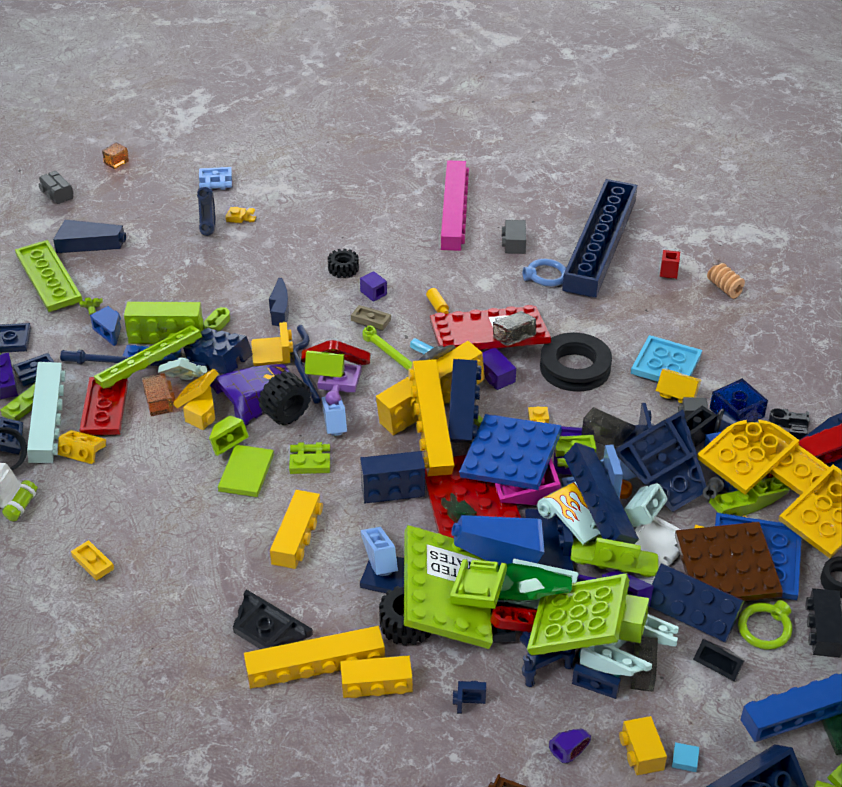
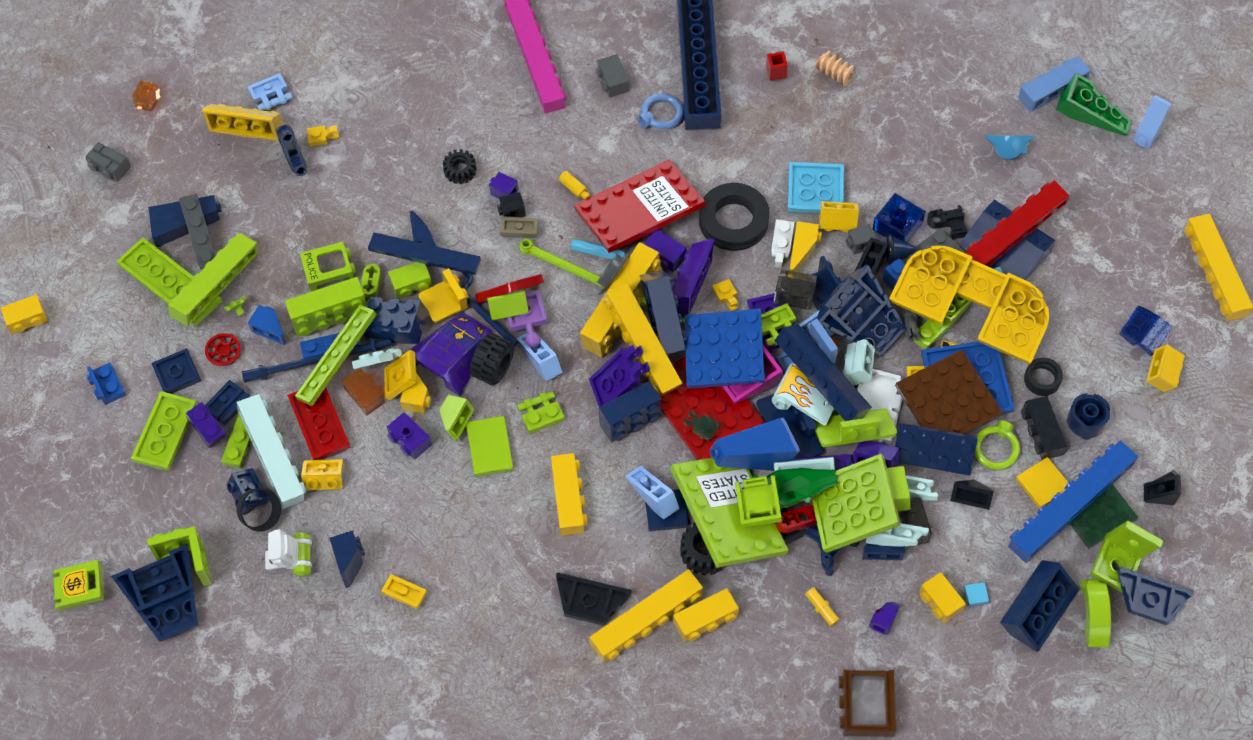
camera: 20 degrees left, 20 degrees up
(56, 511) = (348, 555): none -> dark blue slope
(59, 333) = (222, 349): none -> red wheel
(81, 278) = (212, 279): none -> lime brick
(93, 245) = (197, 229): none -> dark grey plate
(172, 288) = (312, 270): none -> lime window
(174, 186) = (242, 121): none -> yellow slope
(176, 439) = (409, 436): none -> dark purple brick
(251, 325) = (409, 279): none -> lime piece
(272, 307) = (424, 253): none -> dark blue tile
(372, 299) = (511, 206): none -> black brick
(400, 436) = (618, 375): none -> dark purple tile
(469, 693) = (787, 600): dark blue bracket -> none
(505, 711) = (822, 607): none -> yellow pin
(511, 391) = (692, 275): none -> dark purple slope
(514, 328) = (670, 205): clear smoke brick -> none
(614, 393) = (782, 241): none -> white hinge
(630, 400) = (804, 244): none -> yellow slope
(802, 669) = (1042, 482): none -> yellow tile

